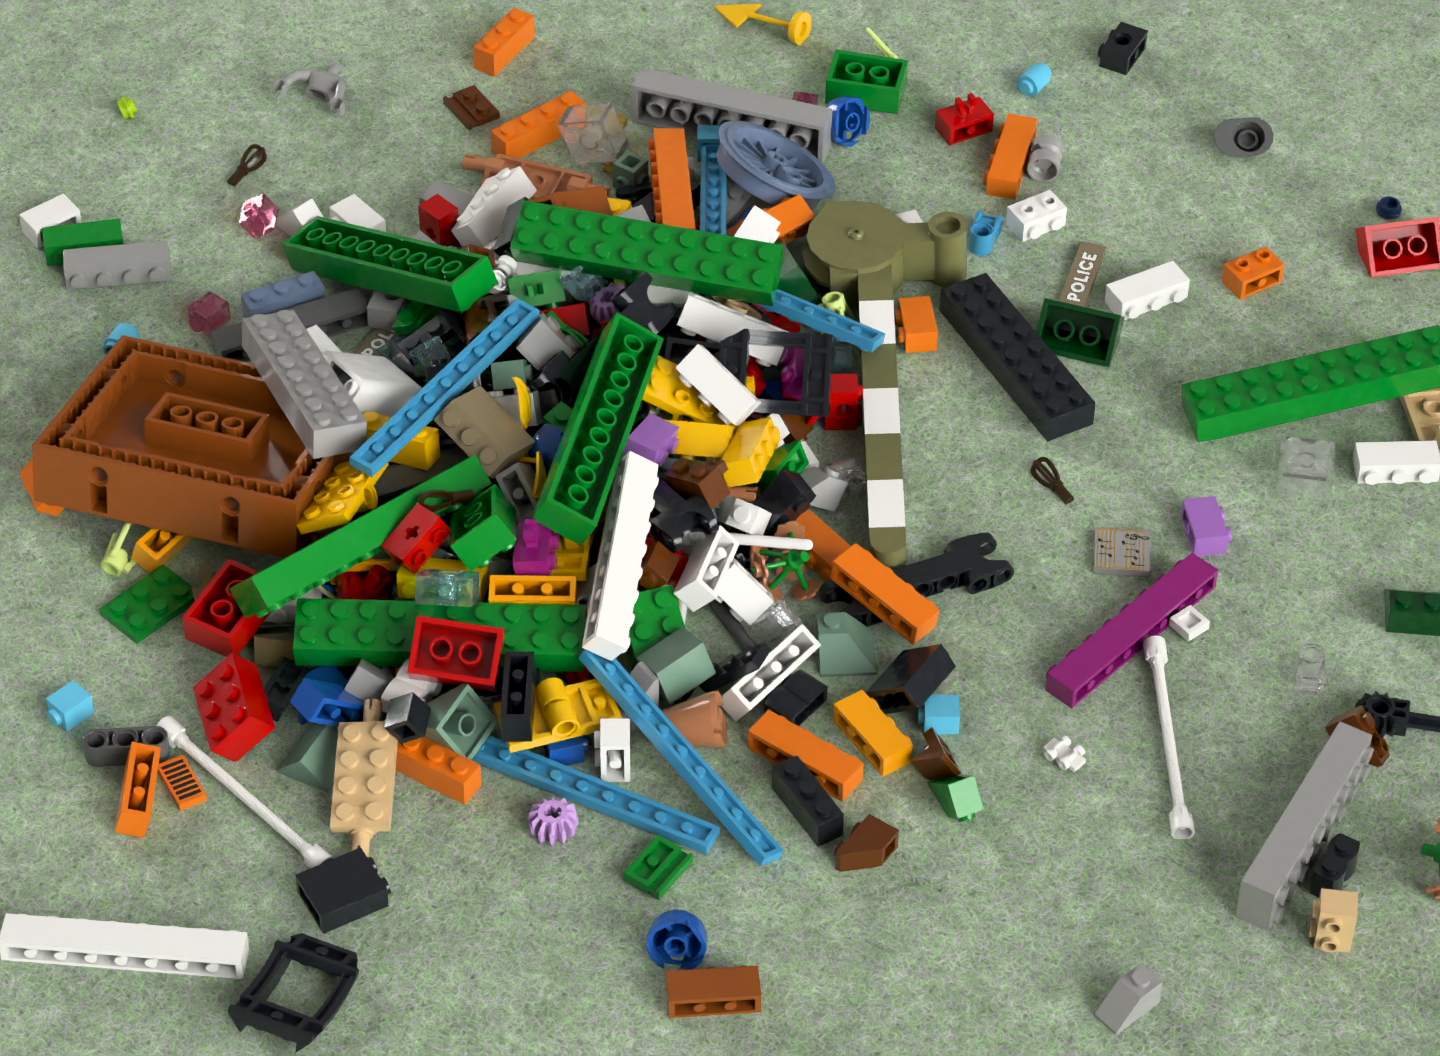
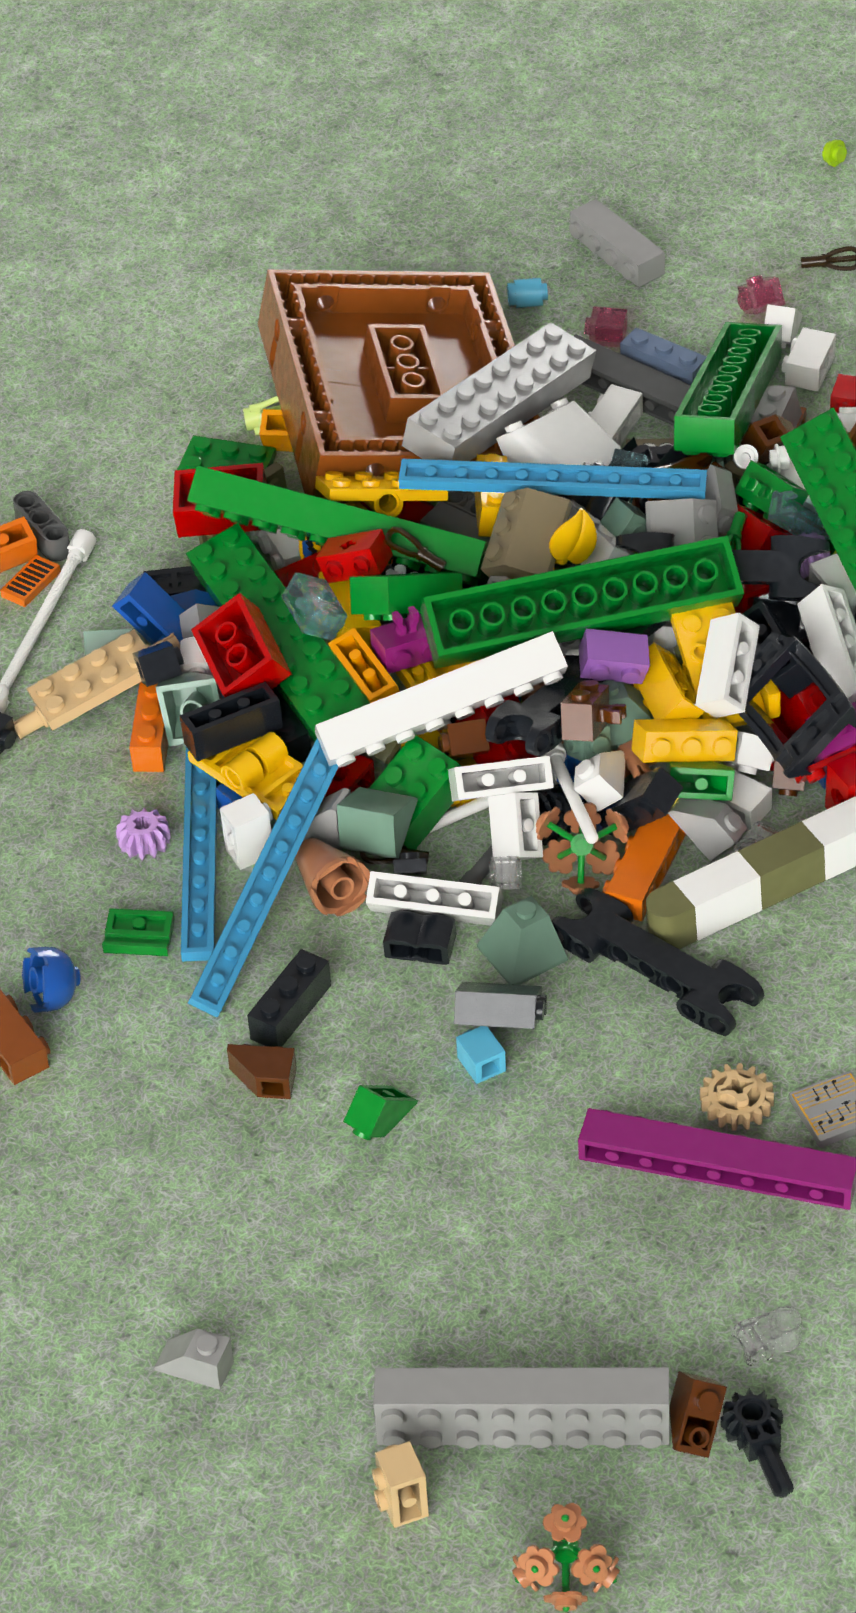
camera: 65 degrees right, 0 degrees up
(48, 214) = (641, 180): white brick -> none
(69, 706) = (63, 471): medium azure brick -> none
(79, 236) = (635, 208): green brick -> none
(233, 707) = (118, 561): red brick -> none
(780, 740) = (351, 975): orange brick -> none
(873, 732) = (417, 1013): light orange brick -> none
(884, 593) = (593, 932): orange brick -> none
(936, 759) = (419, 1071): reddish brown slope -> none
(1063, 754) = (501, 1179): white piece -> none
(1080, 594) = (736, 1097): none -> tan gear
(1180, 820) = (476, 1306): white hose -> none
(1189, 623) = (767, 1204): white plate -> none
(1336, 865) = (488, 1461): black brick -> none

